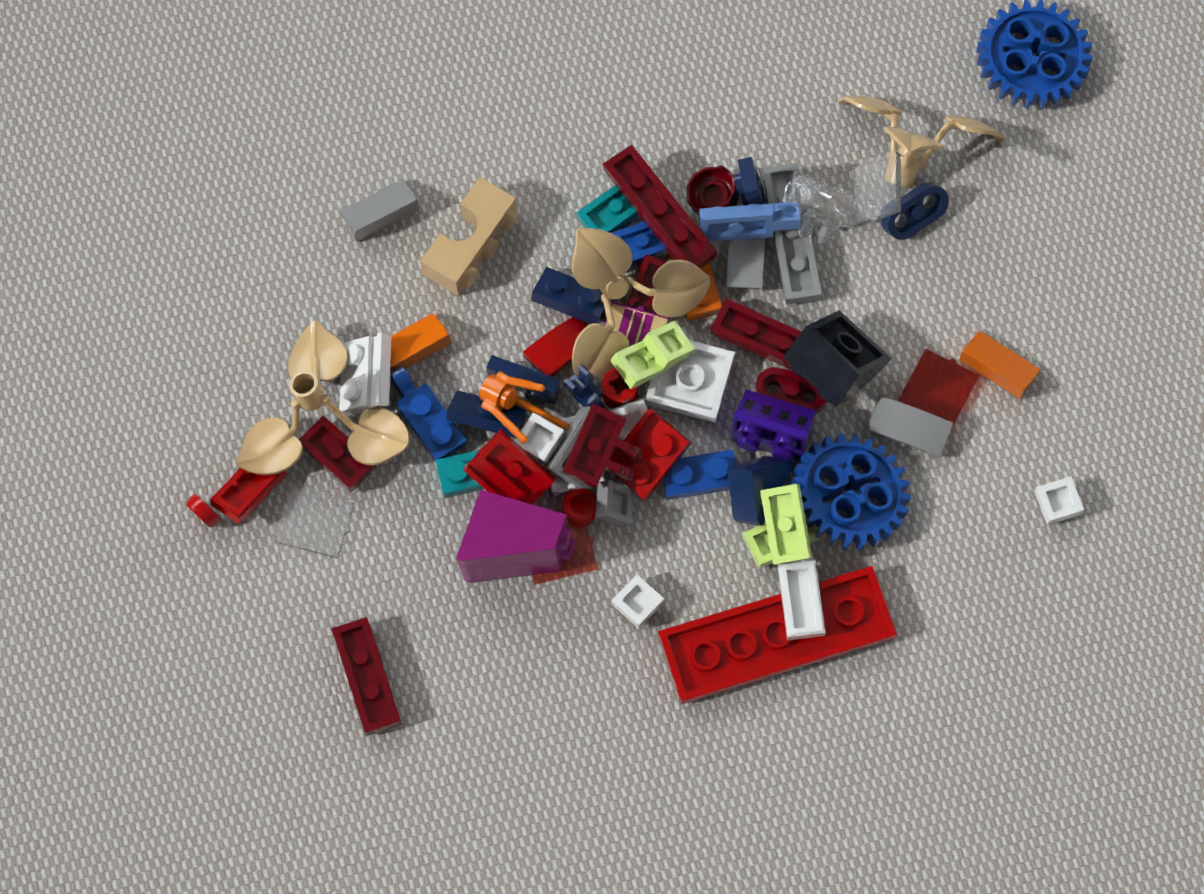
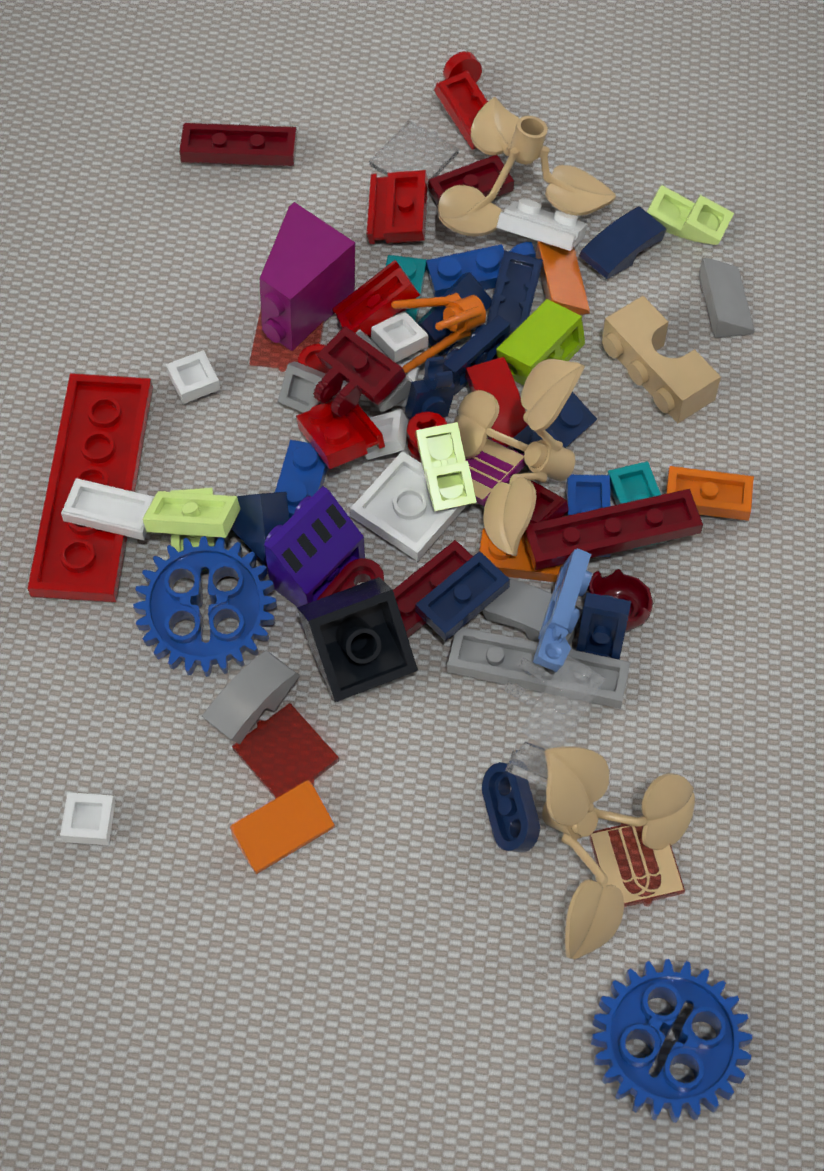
camera: 110 degrees right, 10 degrees down
(300, 266) = (693, 221): none -> yellowish green slope
(353, 306) = (621, 241): none -> dark blue slope
(386, 506) = (397, 207): none -> red plate
(447, 372) = (515, 288): none -> dark blue plate
(491, 332) = (544, 335): none -> lime hinge
(583, 162) = (714, 492): none -> orange plate
(763, 299) = (462, 595): none -> dark blue plate
(919, 114) = (633, 867): none -> piece

